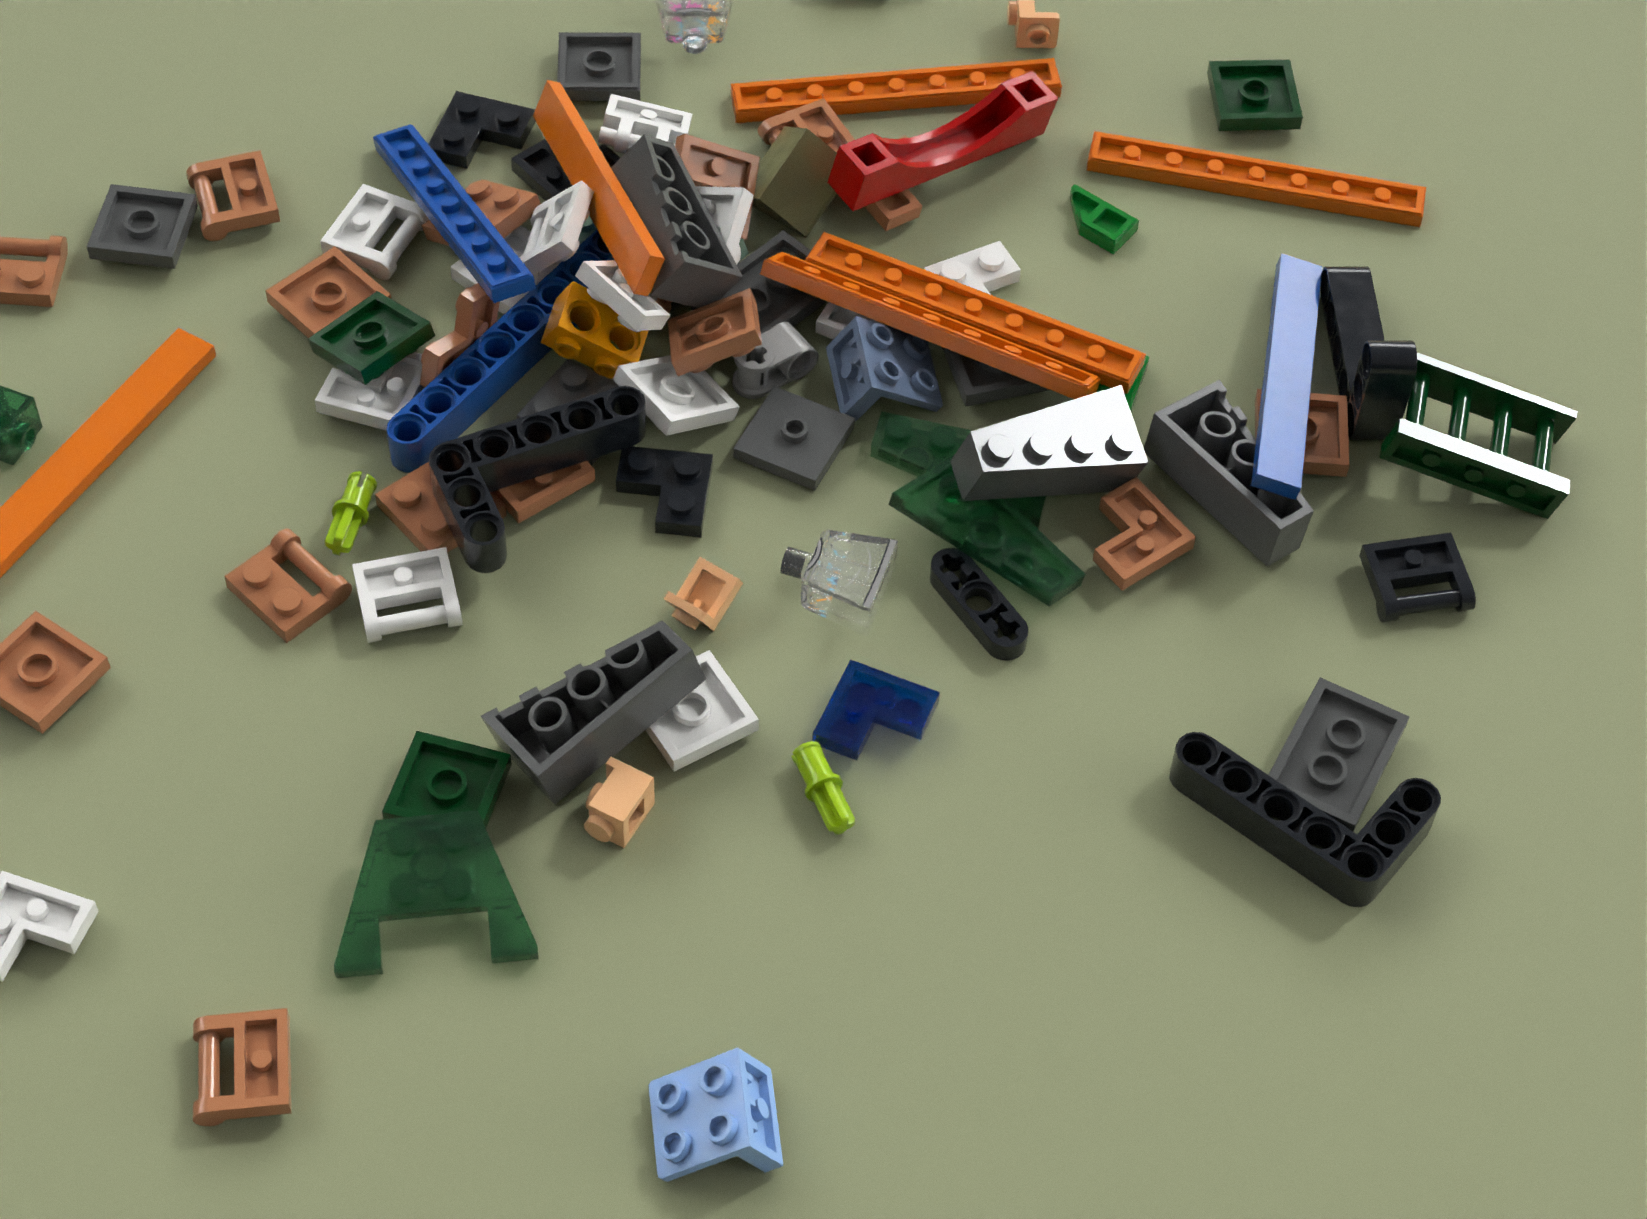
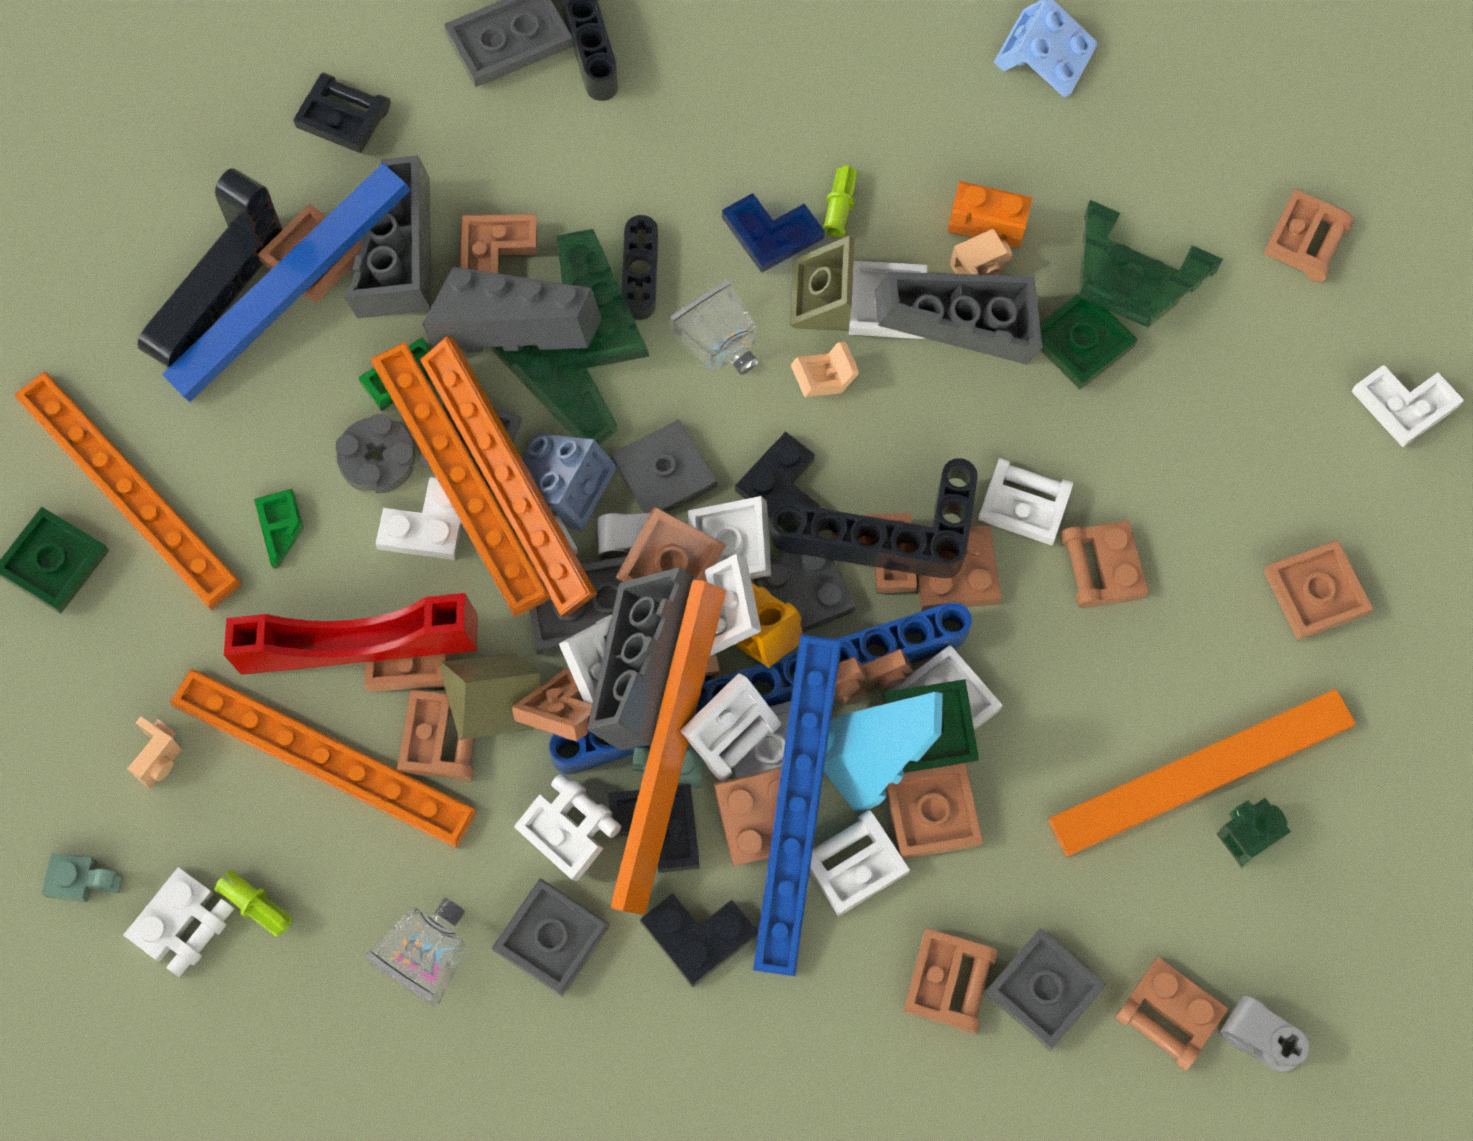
camera: 145 degrees left, 15 degrees up
(350, 513) = (1028, 592): lime axle -> none
(413, 273) = (876, 743): none -> medium azure wedge
(642, 855) = (986, 208): none -> orange brick
(767, 680) = (823, 287): none -> olive slope
(1078, 292) = (369, 434): none -> dark grey plate
(1468, 465) = (222, 132): dark green fence -> none

